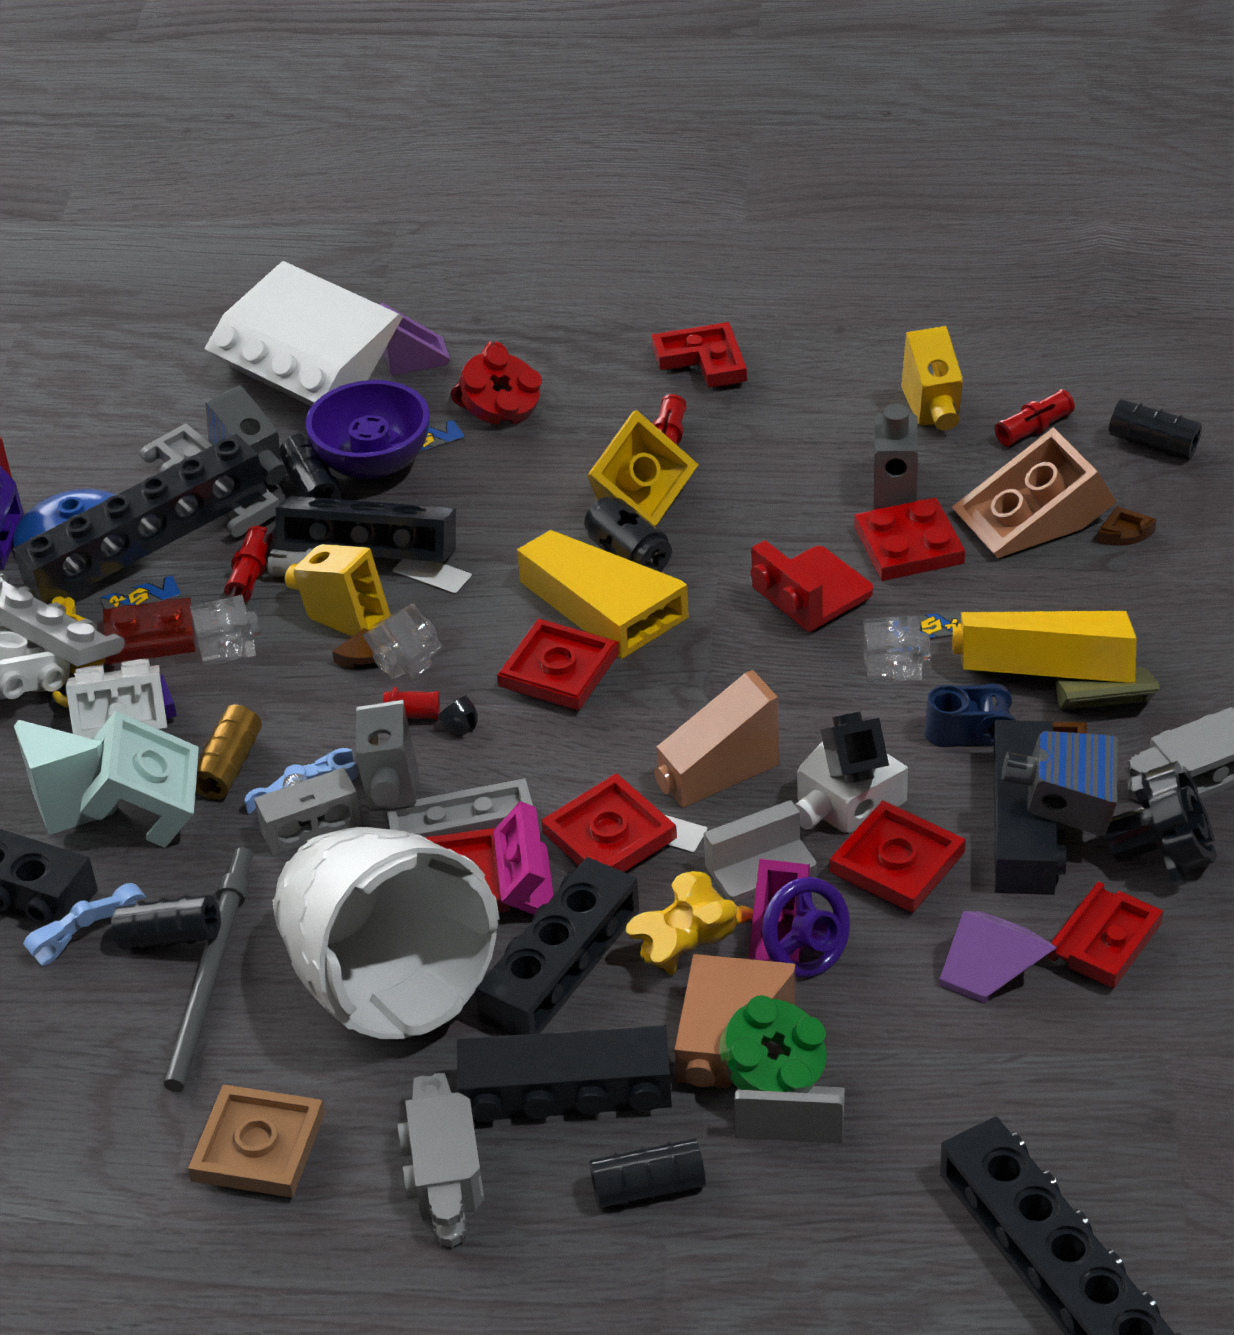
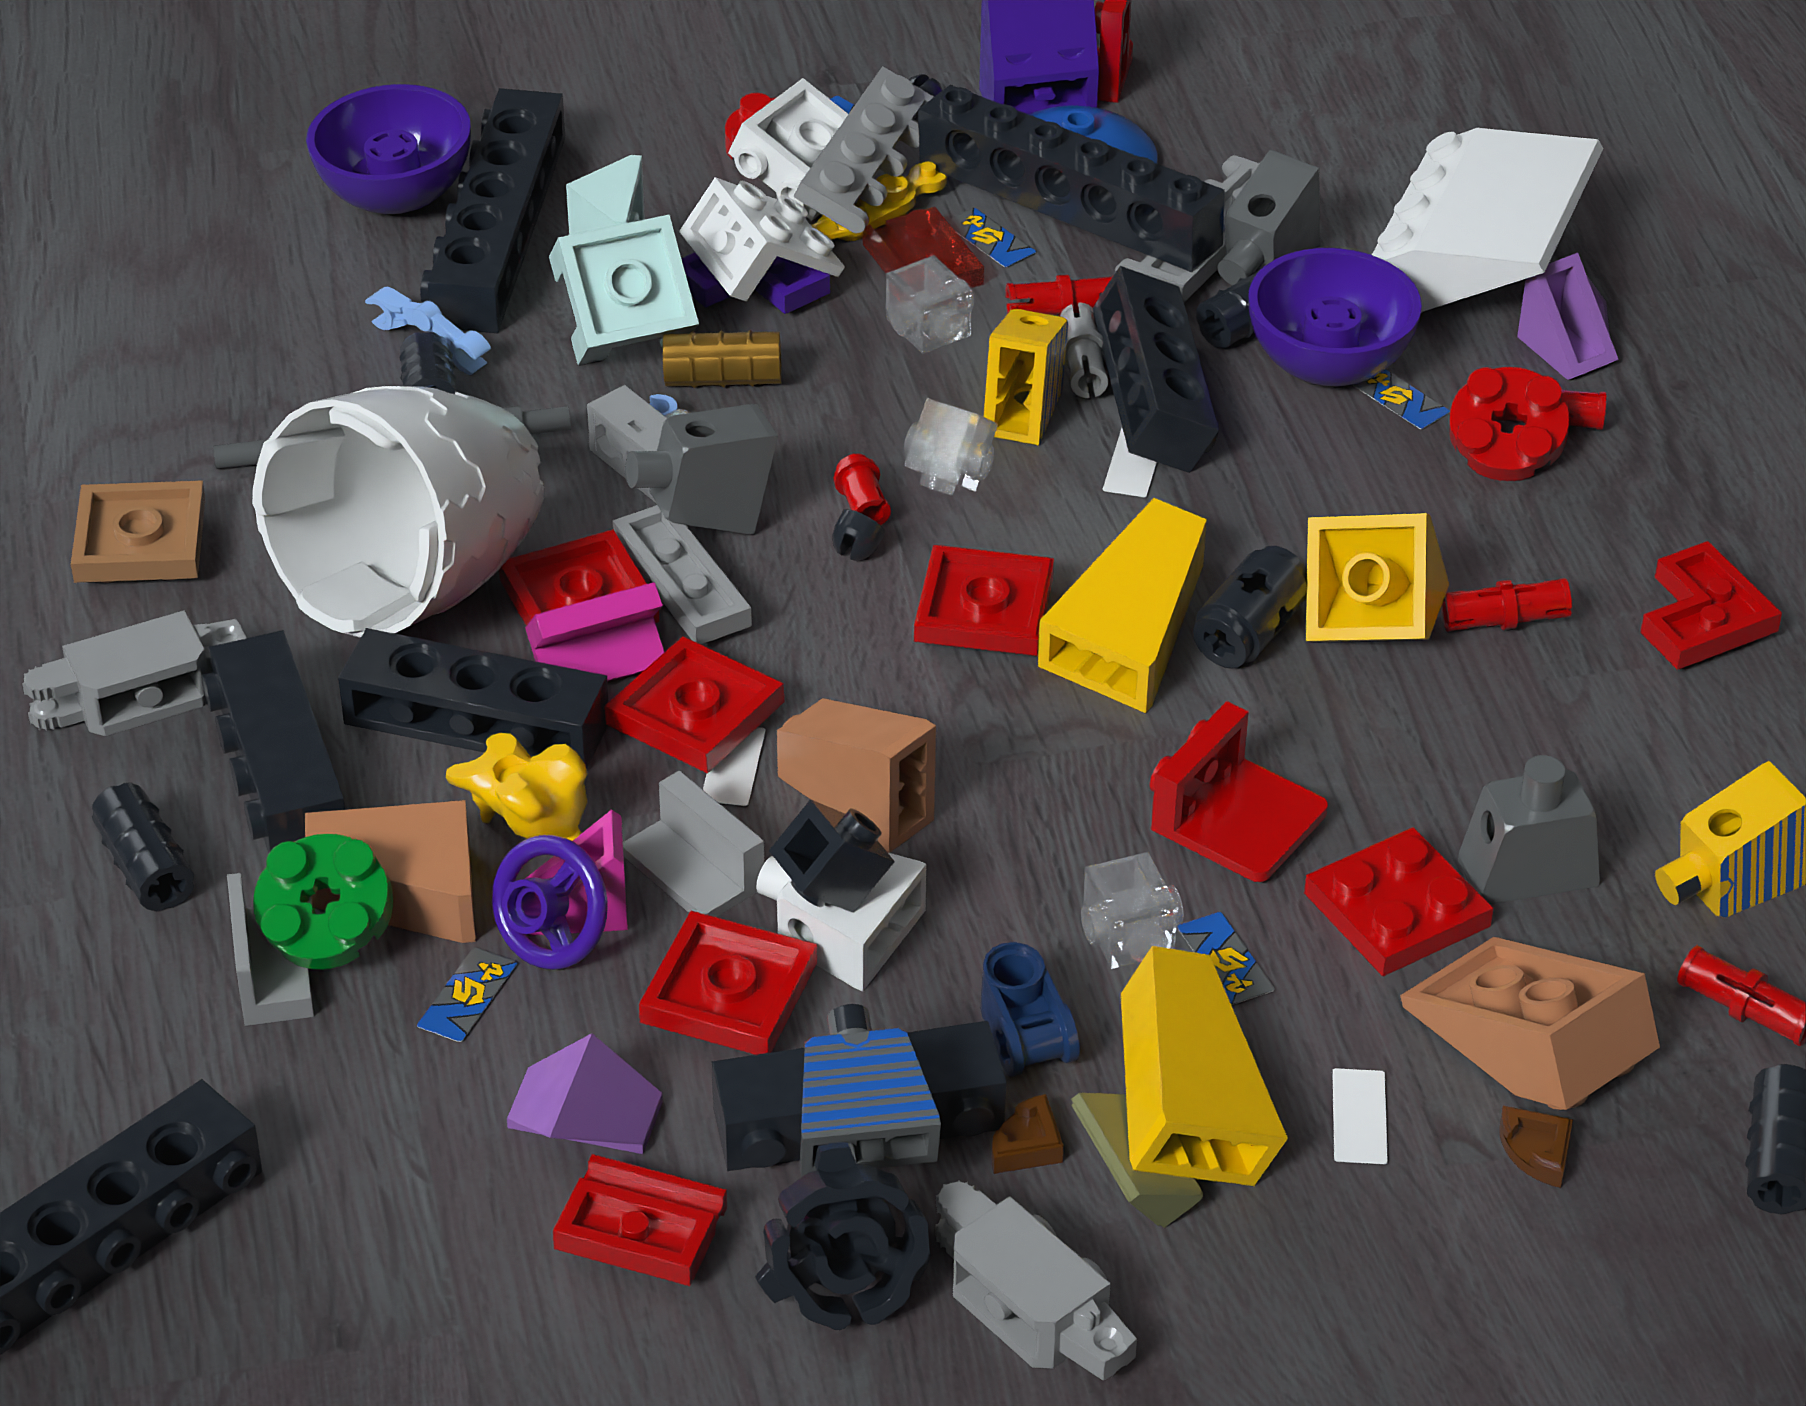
camera: 70 degrees right, 0 degrees up
(849, 1007) = (467, 994): none -> sticker
(1078, 596) = (1359, 1116): none -> white sticker

